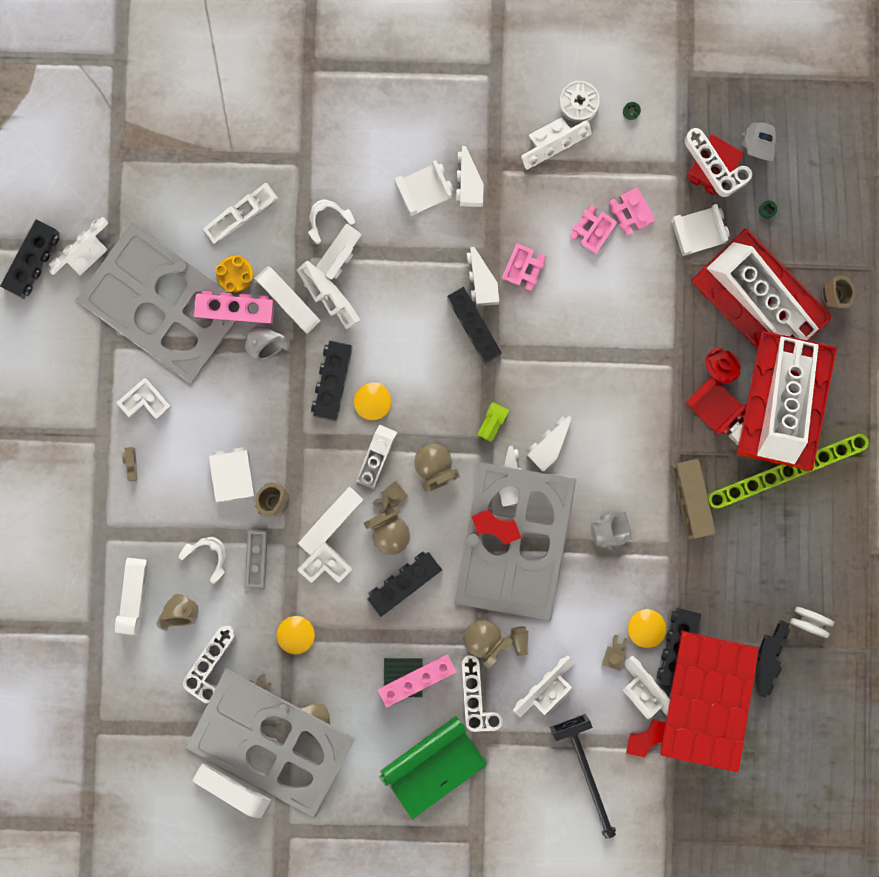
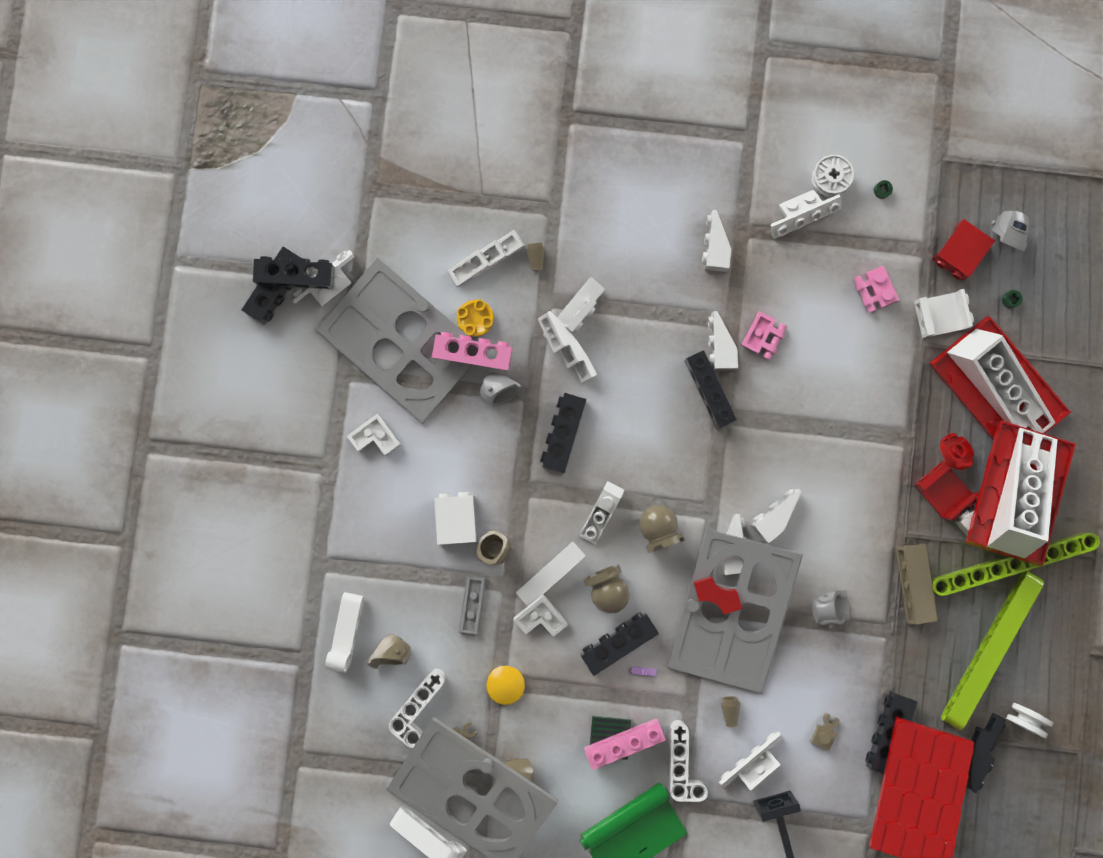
camera: 10 degrees right, 0 degrees up
(18, 243) = (264, 265): none -> black brick
(129, 459) = (355, 494): dark tan plate -> none
(214, 544) = (433, 587): white helmet -> none
(287, 299) = (525, 347): white beam -> none
(290, 206) = (536, 255): none -> dark tan cone
(319, 206) = (566, 257): white helmet -> none
(372, 401) = (602, 456): yellow dish -> none
(392, 495) = (614, 552): dark tan plate -> none
(424, 188) = (671, 248): white panel -> none
(426, 609) = (643, 671): none -> lavender piece
(485, 641) = (696, 710): dark tan tile -> none
(494, 418) = (723, 483): lime piece -> none
(598, 232) = (842, 306): bright pink plate -> none
(640, 743) = (845, 825): red tile -> none
(644, 691) = (853, 774): white bracket -> none
(647, 628) = (859, 710): yellow dish -> none
(715, 161) = (966, 245): white beam -> none
(772, 558) = (992, 650): none -> lime beam
(838, 292) = (1078, 388): dark tan helmet -> none

